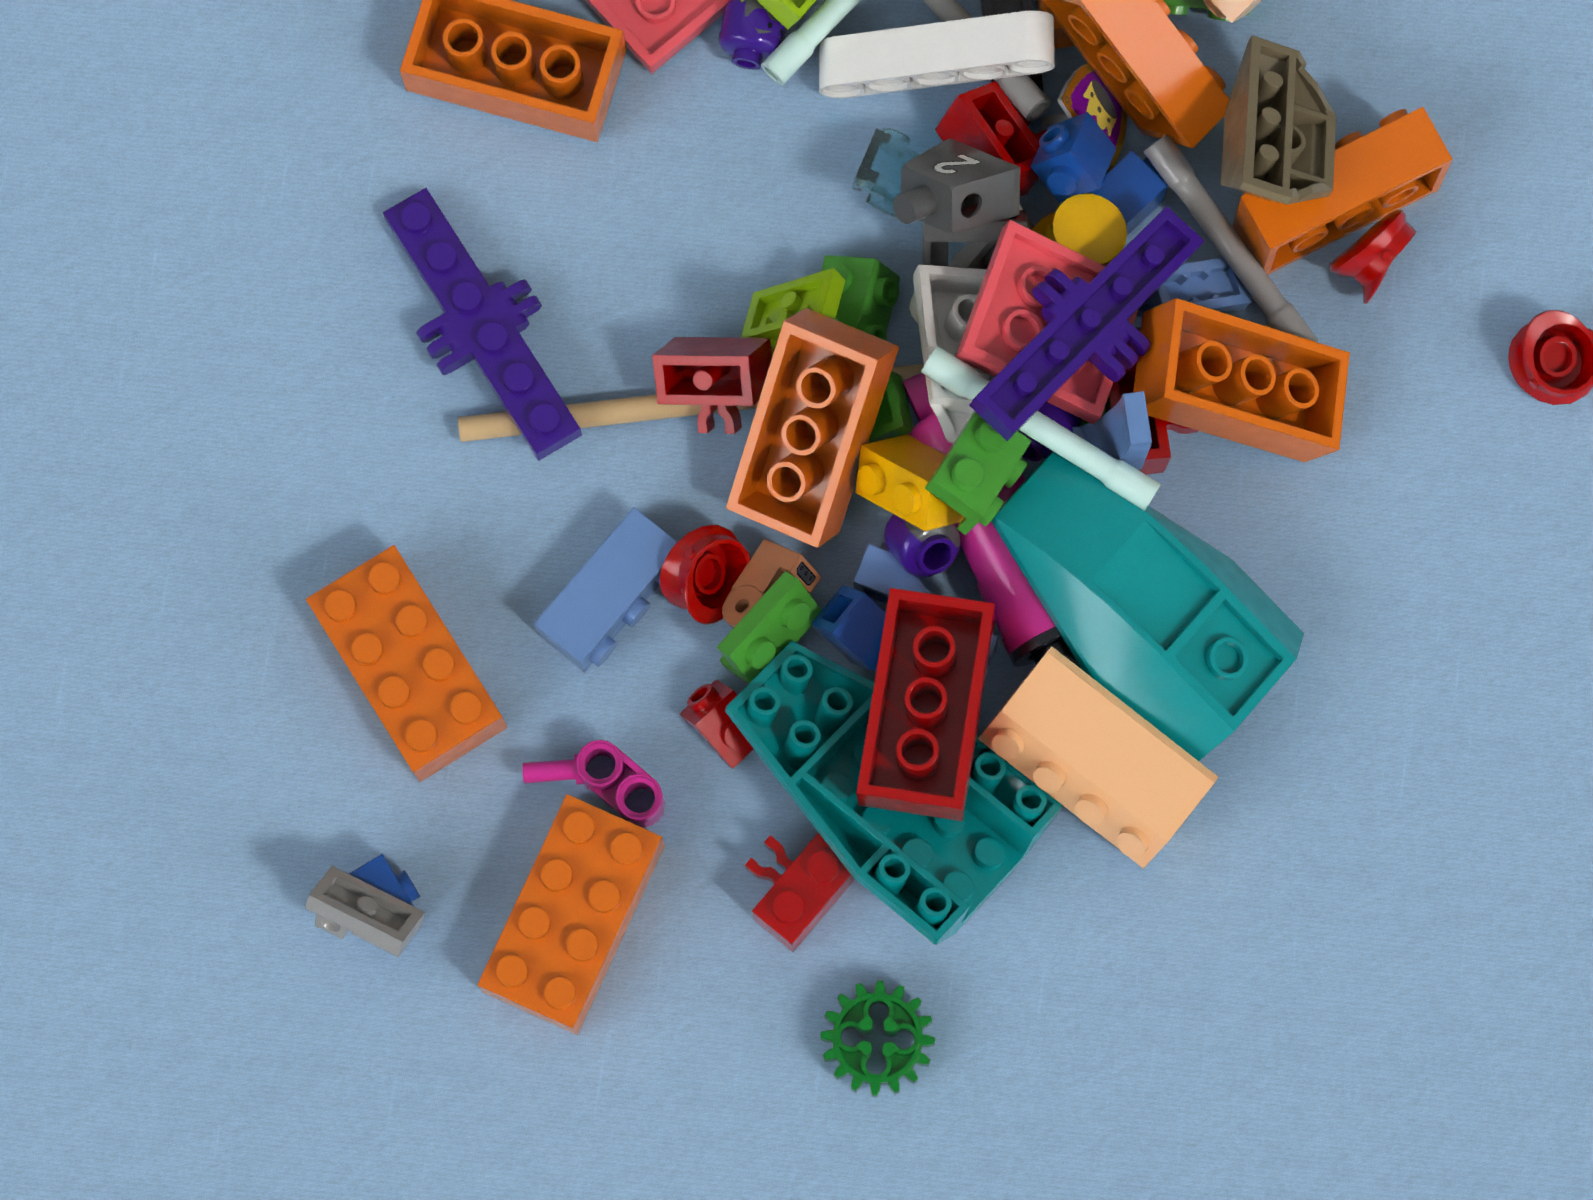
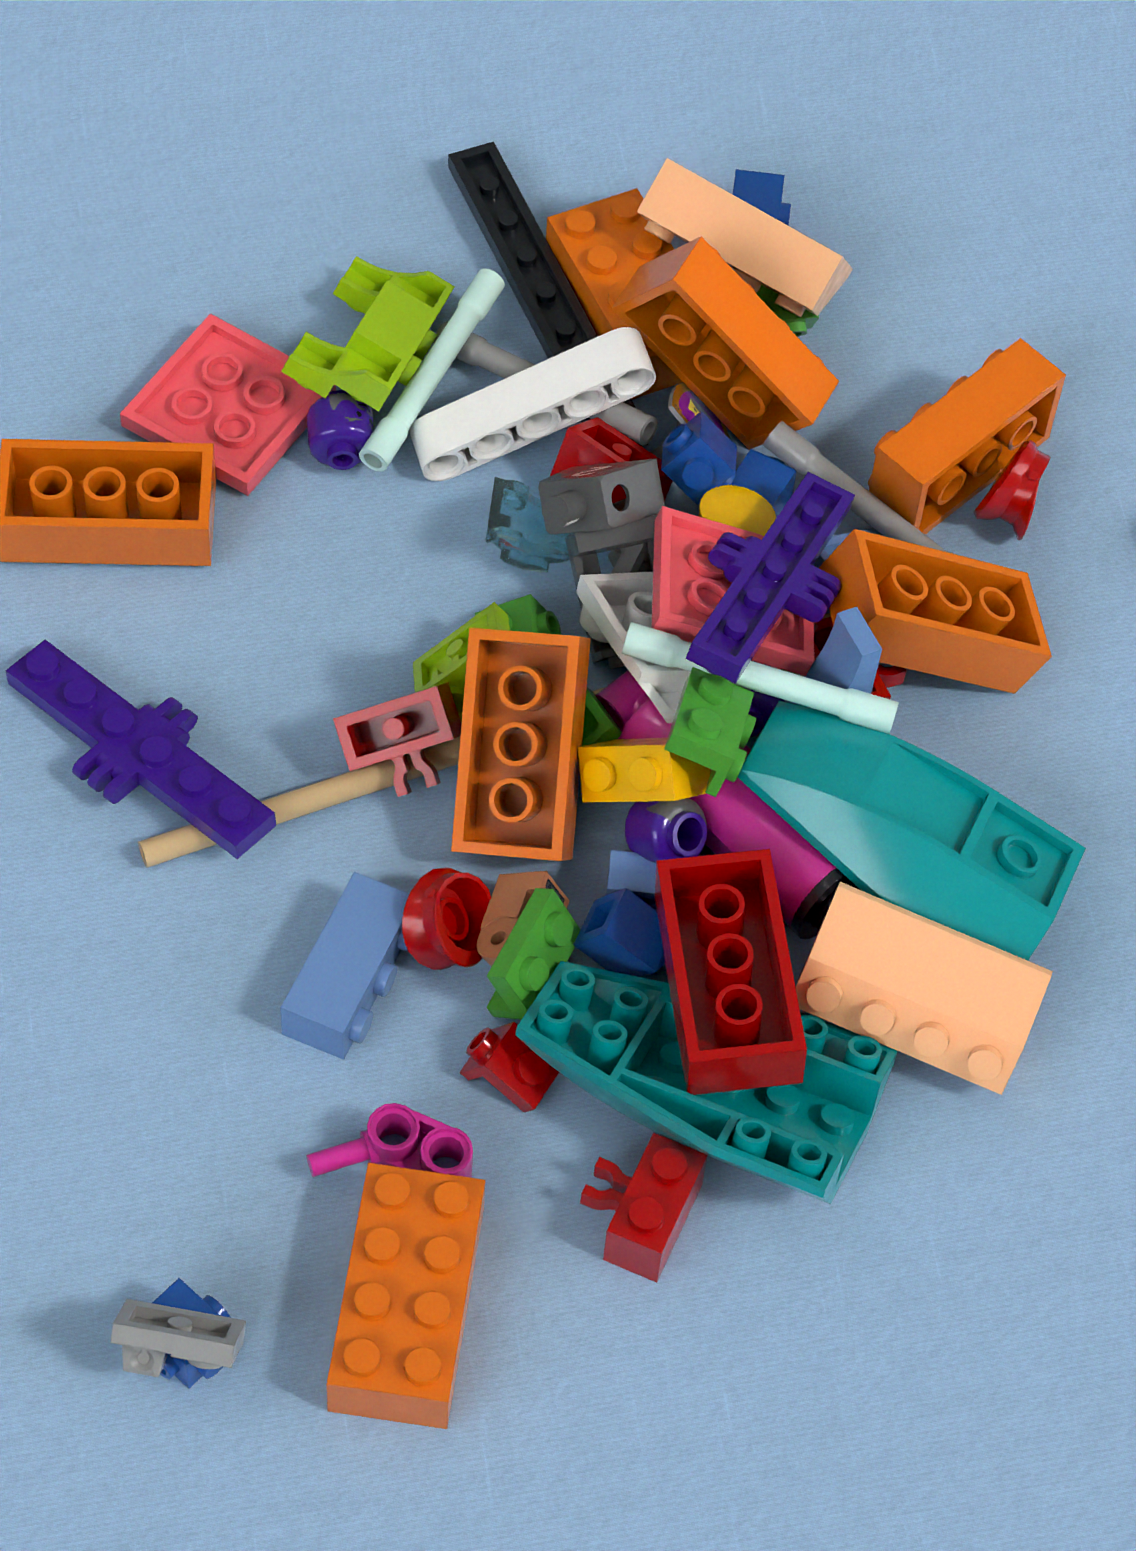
camera: 25 degrees left, 20 degrees down
(406, 663) = (151, 1086): orange brick -> none
(856, 1016) = (761, 1367): green gear -> none
(1277, 128) = (889, 380): dark tan wedge -> none

